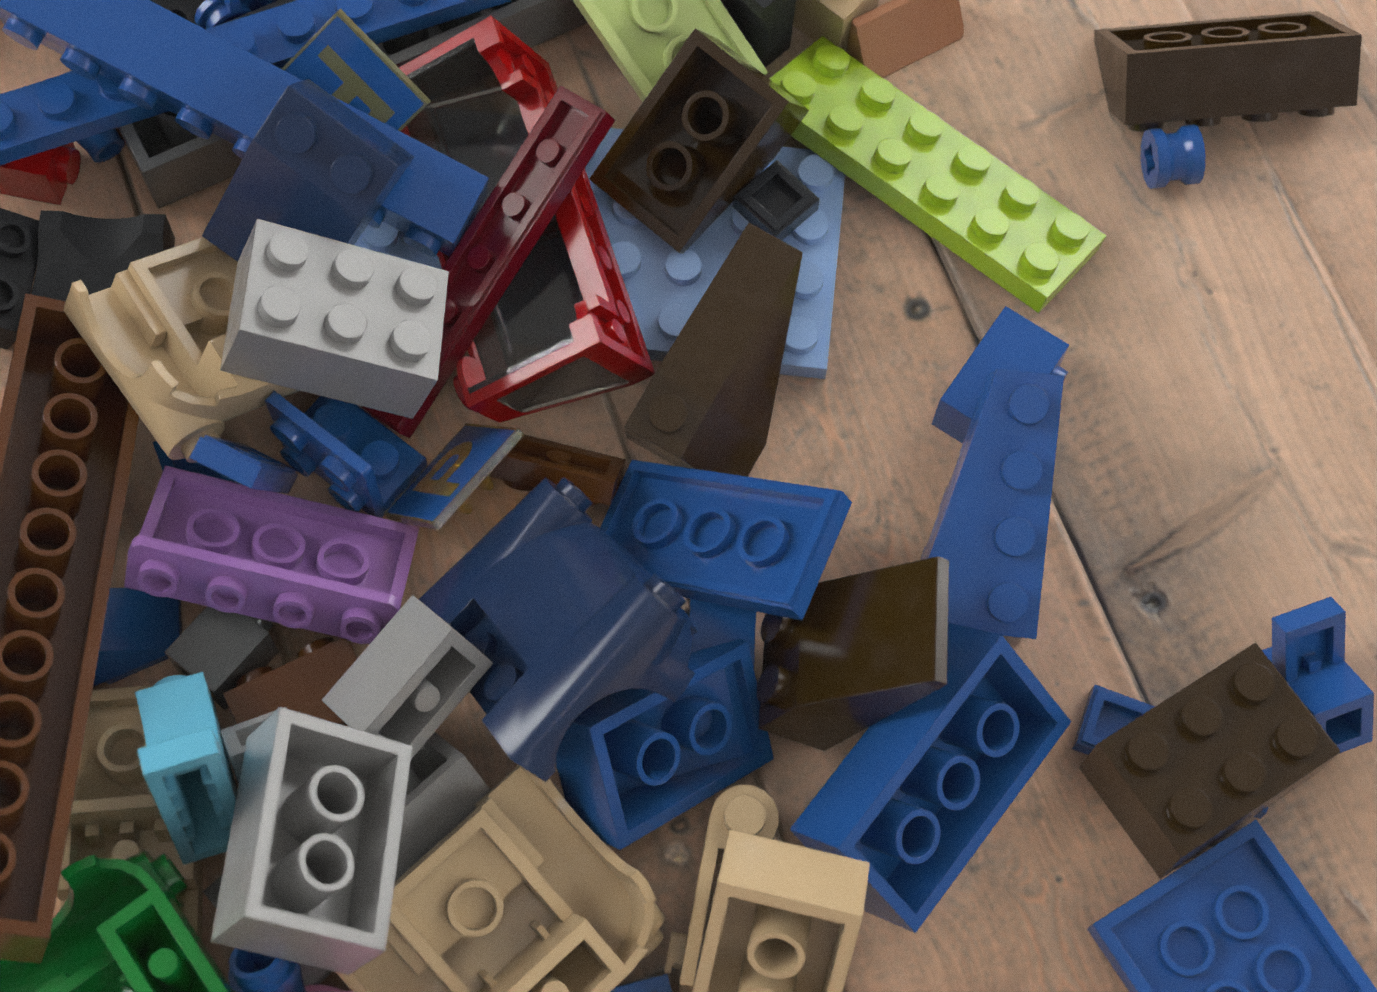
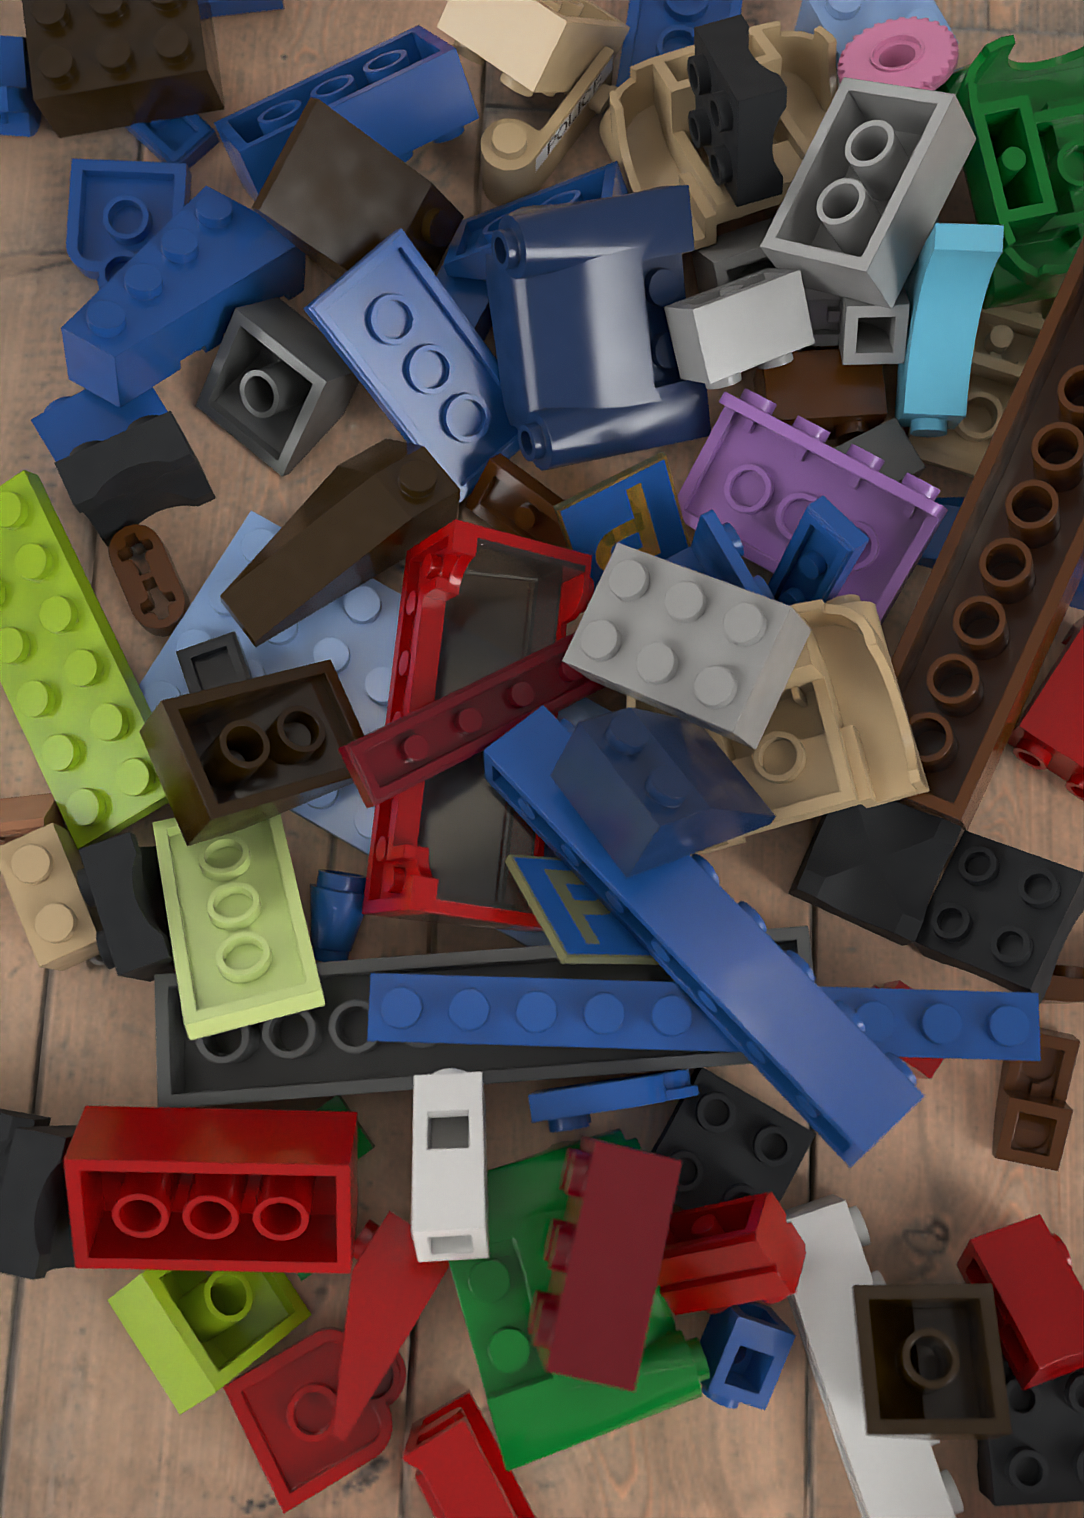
camera: 155 degrees left, 10 degrees up
(518, 908) = (735, 110): none -> black brick
(575, 63) = (335, 913): none -> blue cone
(886, 489) = (276, 383): none -> dark grey slope
(891, 272) = (138, 585): none -> reddish brown beam
(935, 336) = (134, 475): none -> black brick
(1107, 602) = (119, 210): none -> blue plate

